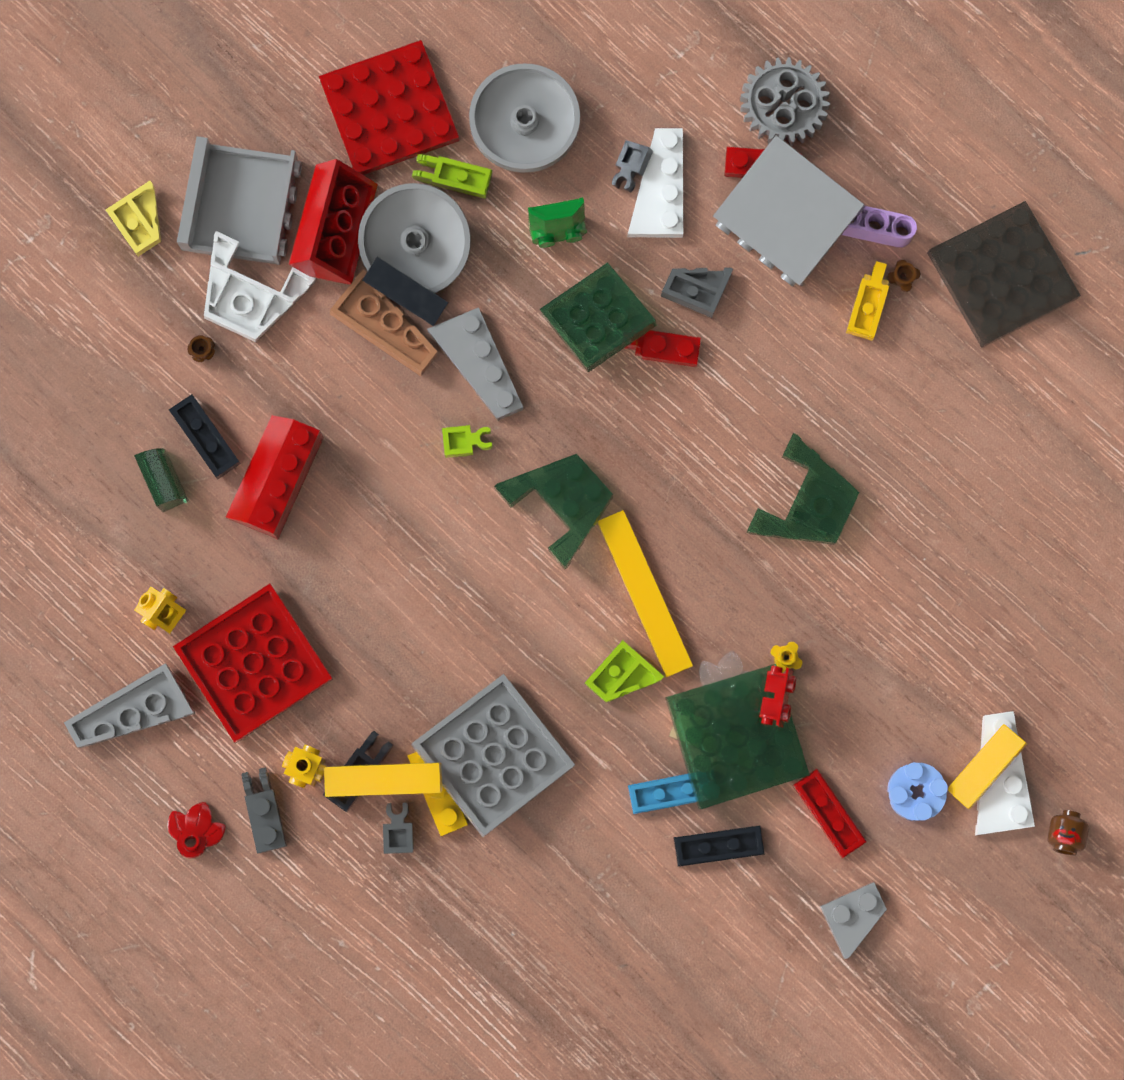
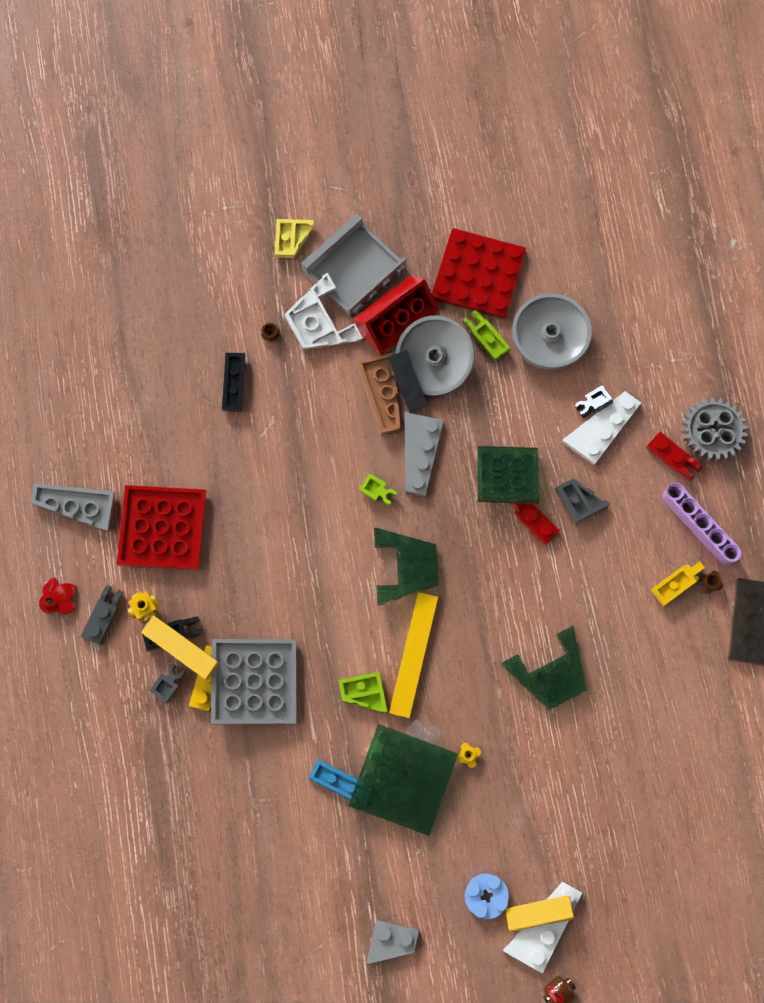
camera: 40 degrees right, 5 degrees down
(159, 609) = (133, 459): yellow brick -> none
(161, 478) = (191, 387): clear green brick -> none
(275, 475) = (256, 432): red slope -> none
(557, 222) = (525, 403): green slope -> none
(718, 846) = (343, 836): black tile -> none
(778, 708) = (439, 780): red hinge -> none
(787, 211) = (666, 493): light grey panel -> none
(829, 813) = (423, 868): red tile -> none

